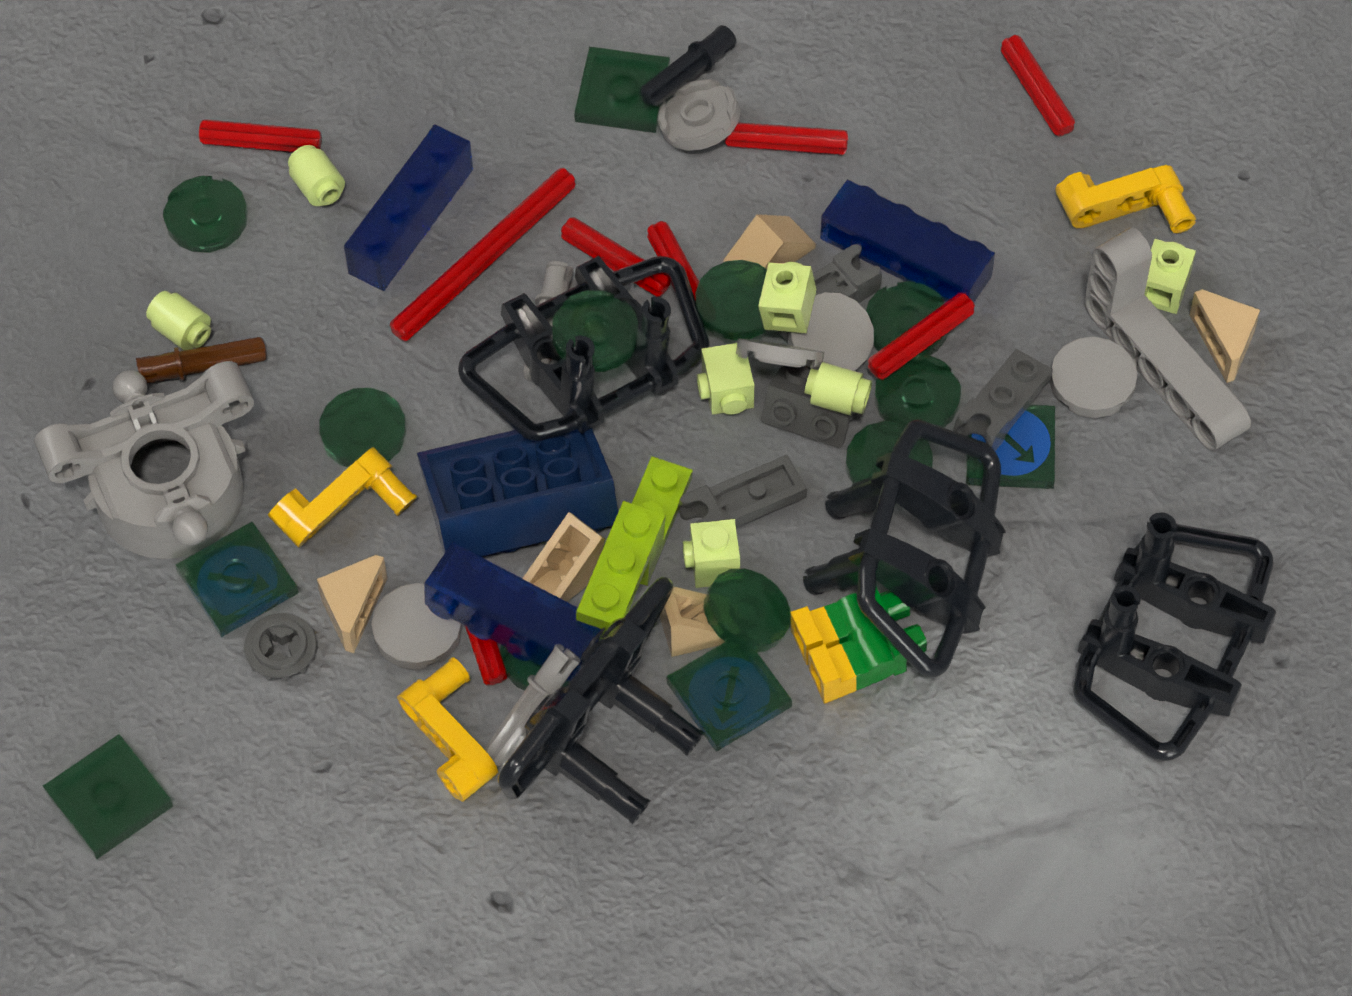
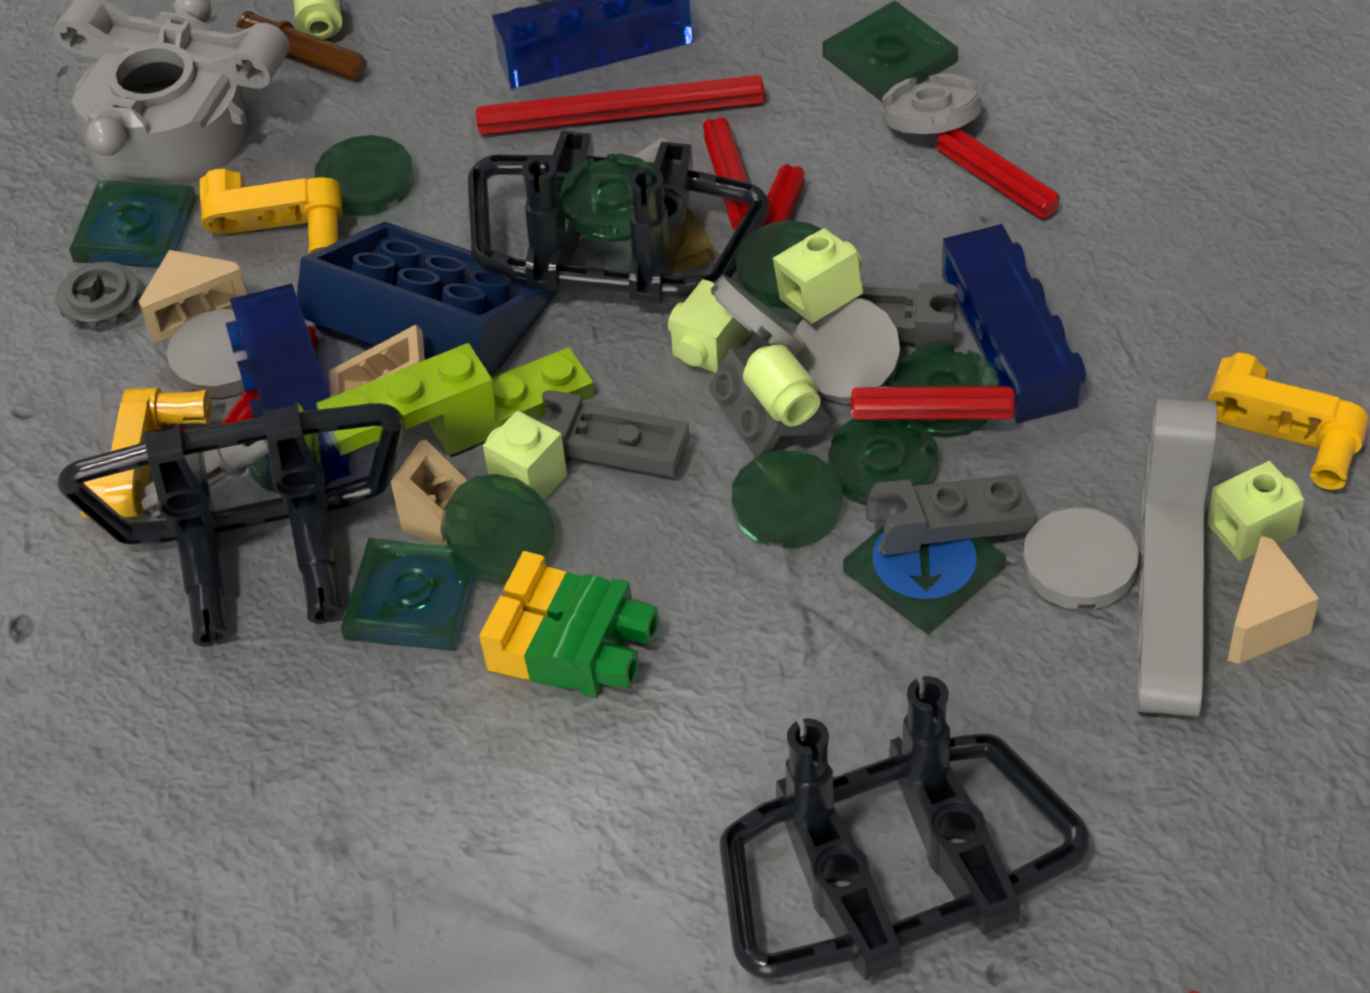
camera: 45 degrees right, 10 degrees down
(698, 58) = (985, 60): black axle -> none
(771, 240) = (886, 243): tan slope -> none
(904, 569) = (734, 494): black piece -> none
(1037, 85) = (1303, 269): red axle -> none

